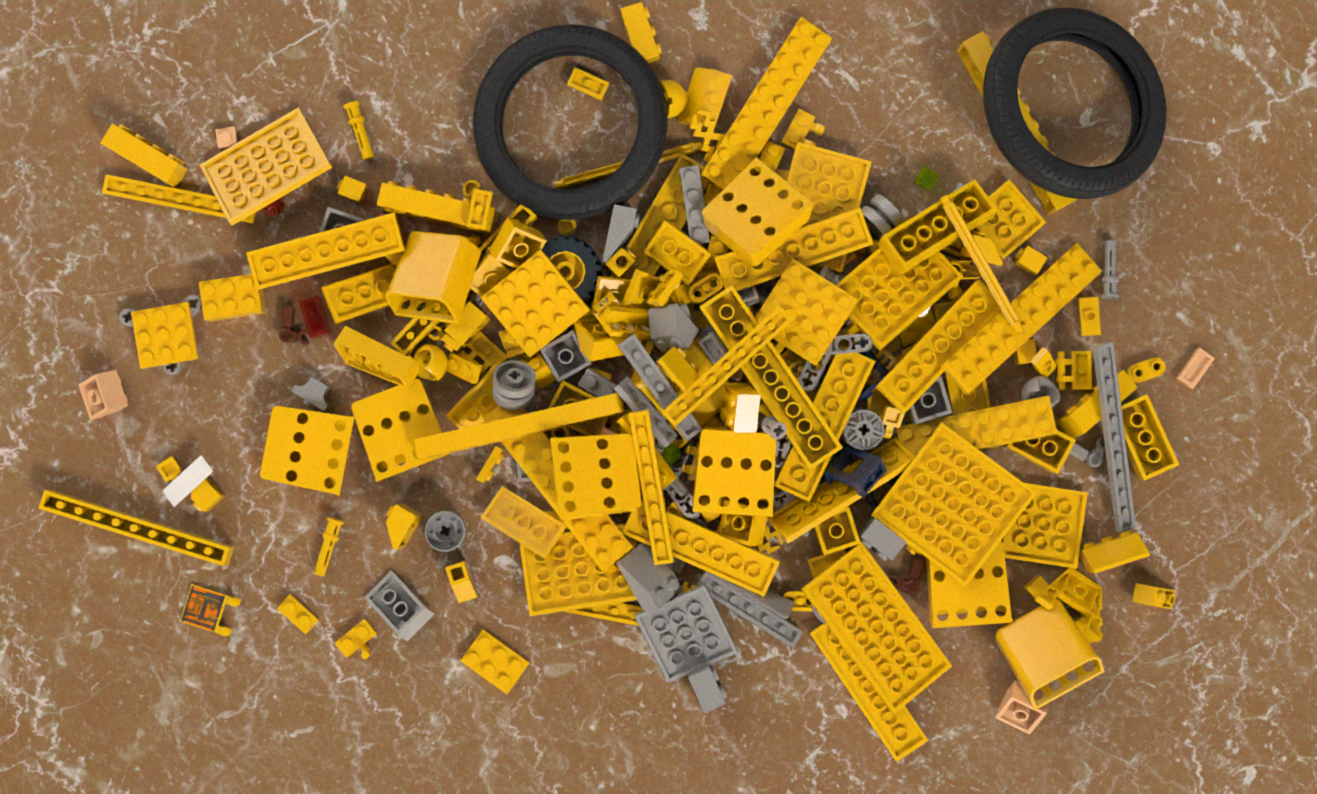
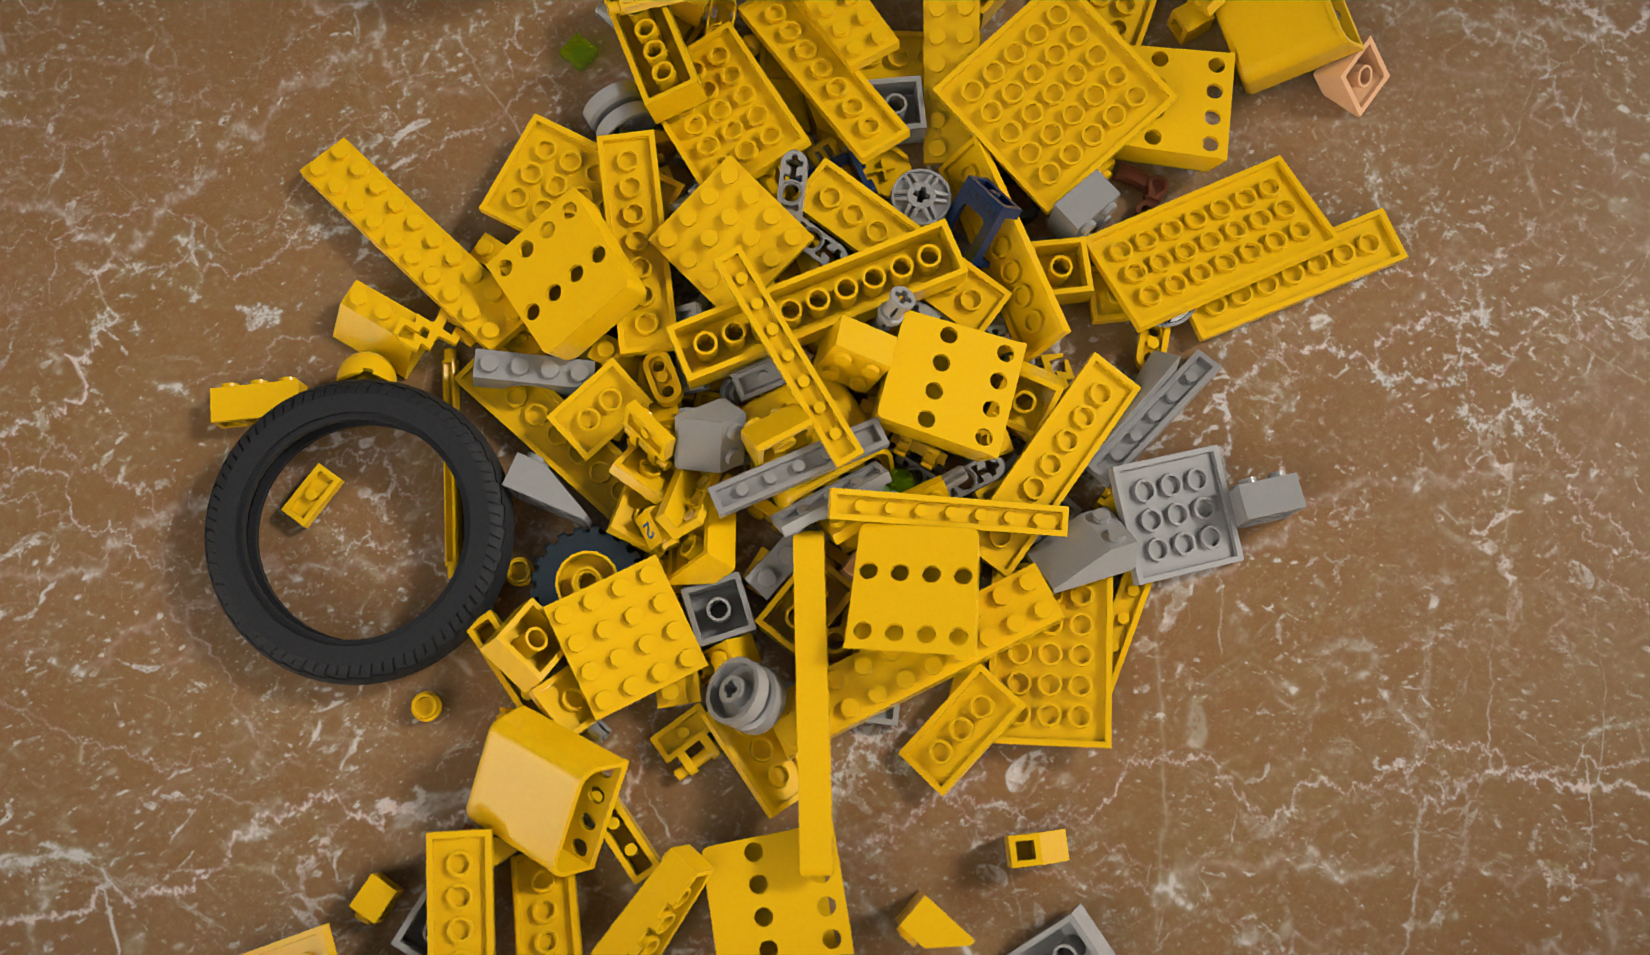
camera: 75 degrees left, 10 degrees down
(357, 121) = (270, 868): yellow pin -> none
(430, 206) = (439, 765): yellow brick -> none
(431, 362) = (681, 824): yellow piece -> none
(442, 541) = (958, 839): light grey wheel -> none
(449, 343) = (657, 790): yellow plate -> none
(463, 368) = (701, 775): yellow plate -> none
(471, 322) = (632, 744): yellow brick -> none
(479, 209) = (456, 692): yellow plate -> none
(495, 458) = (853, 755): yellow plate -> none
(495, 661) = (1170, 821): yellow plate -> none
(617, 270) = (600, 508): yellow brick -> none
(799, 129) = (461, 208): yellow plate -> none
(891, 418) = (908, 158): yellow plate -> none

